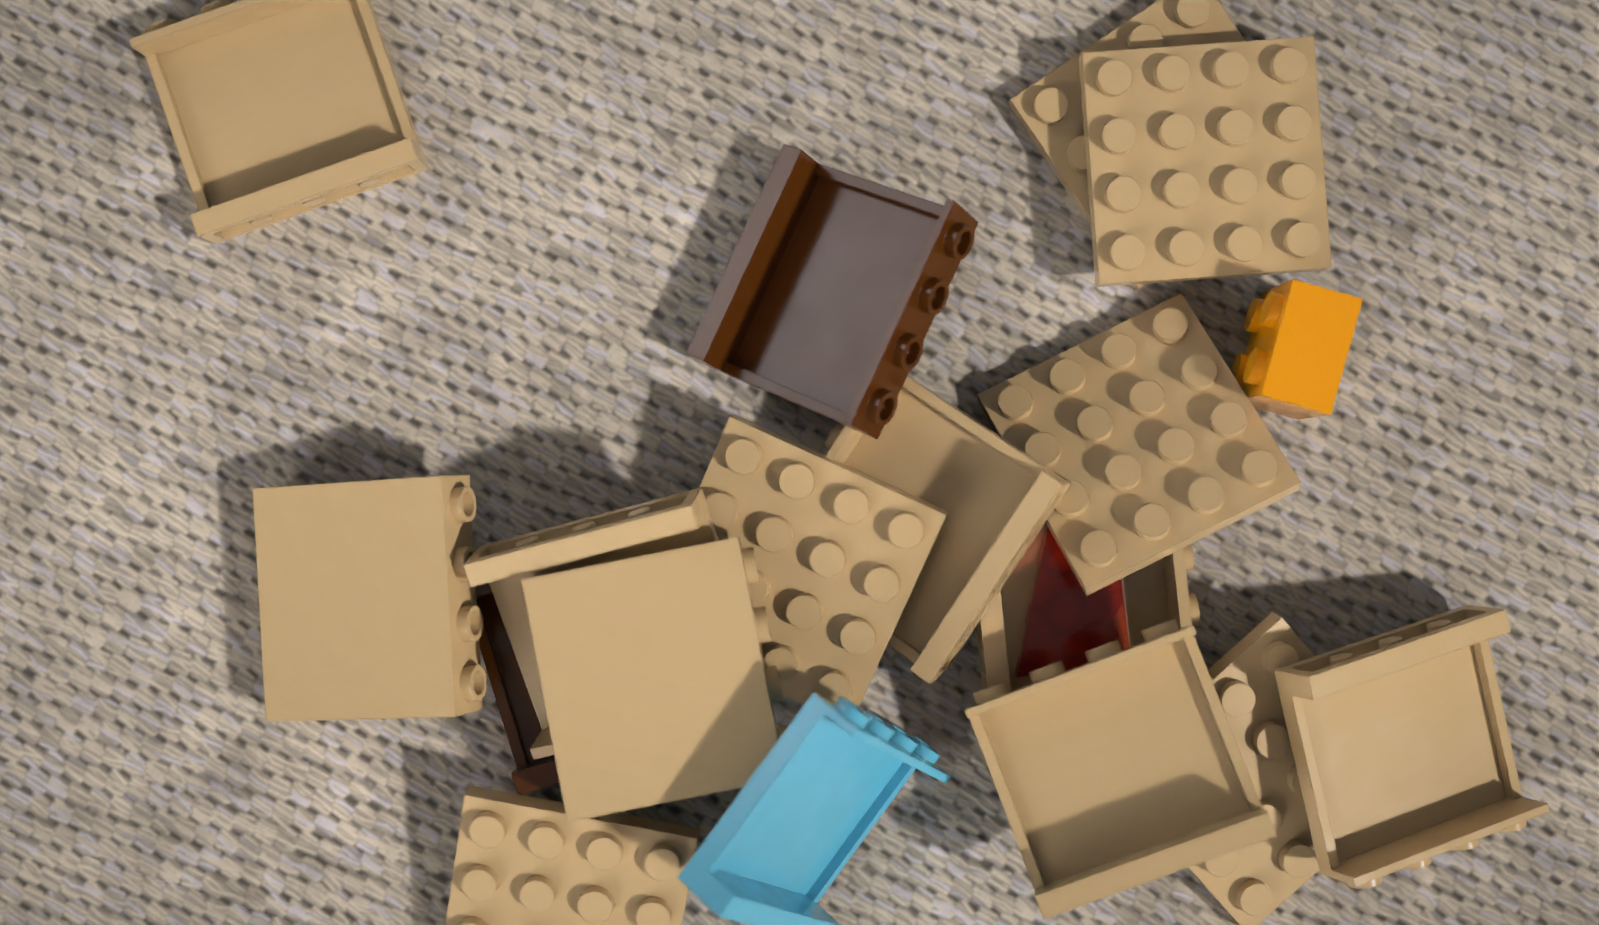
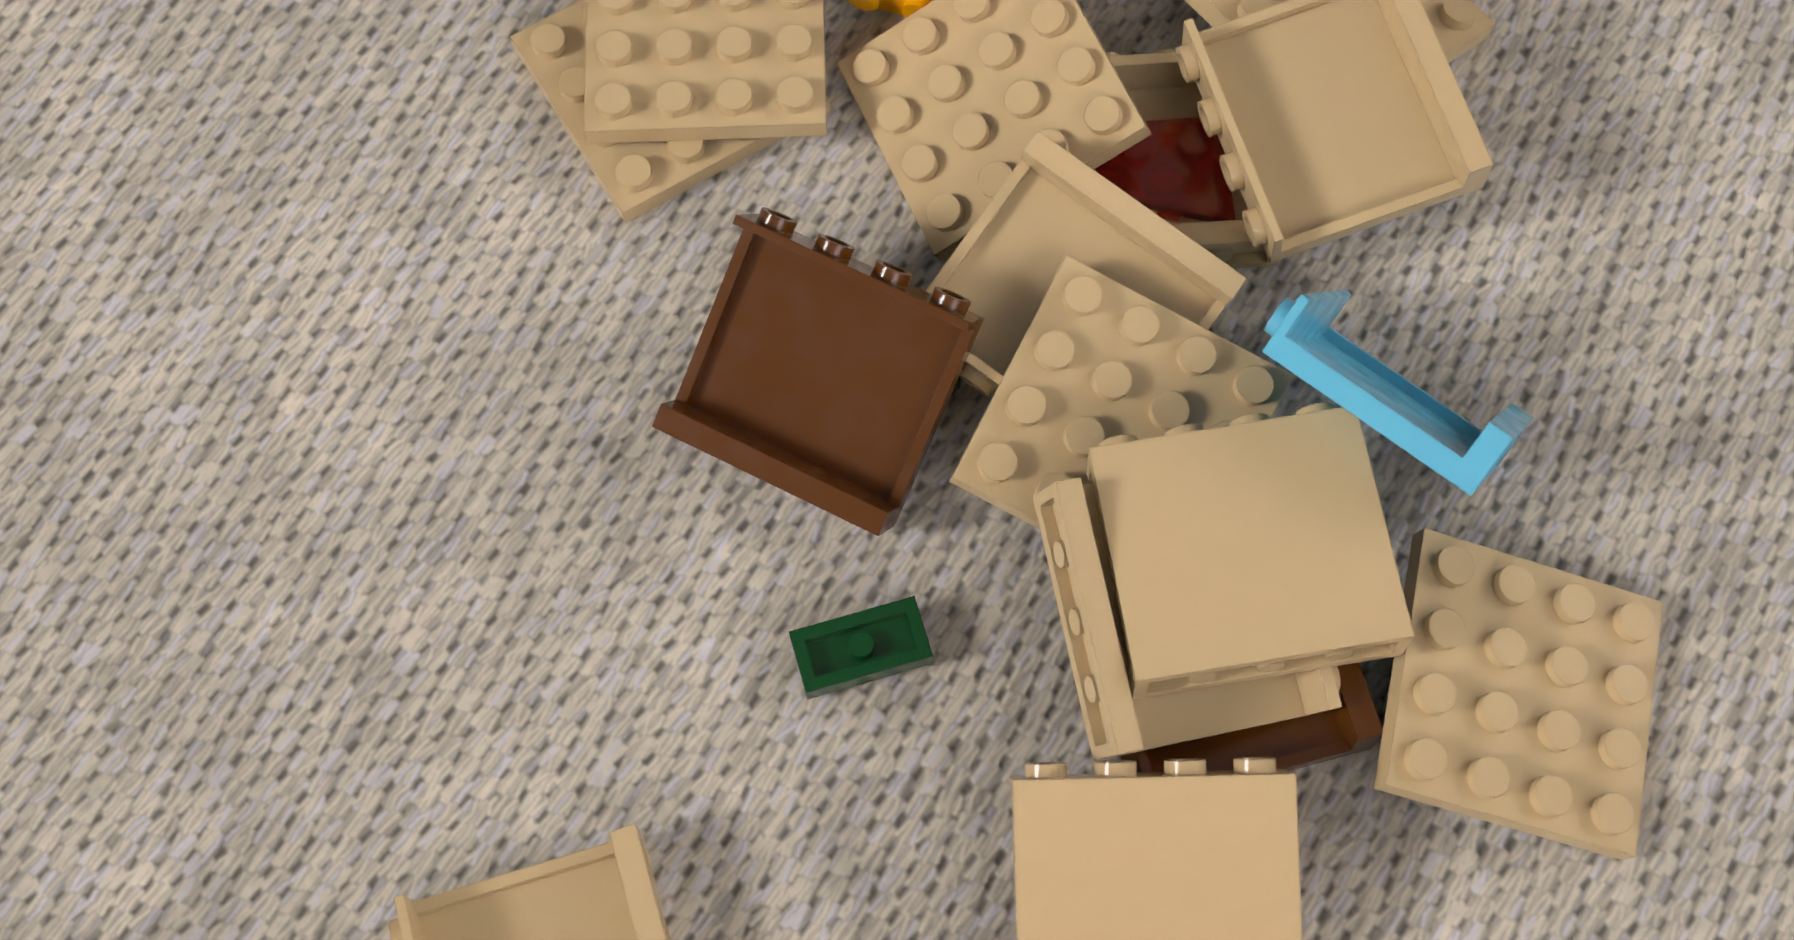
camera: 80 degrees left, 20 degrees down
(592, 343) = (861, 647): none -> dark green plate

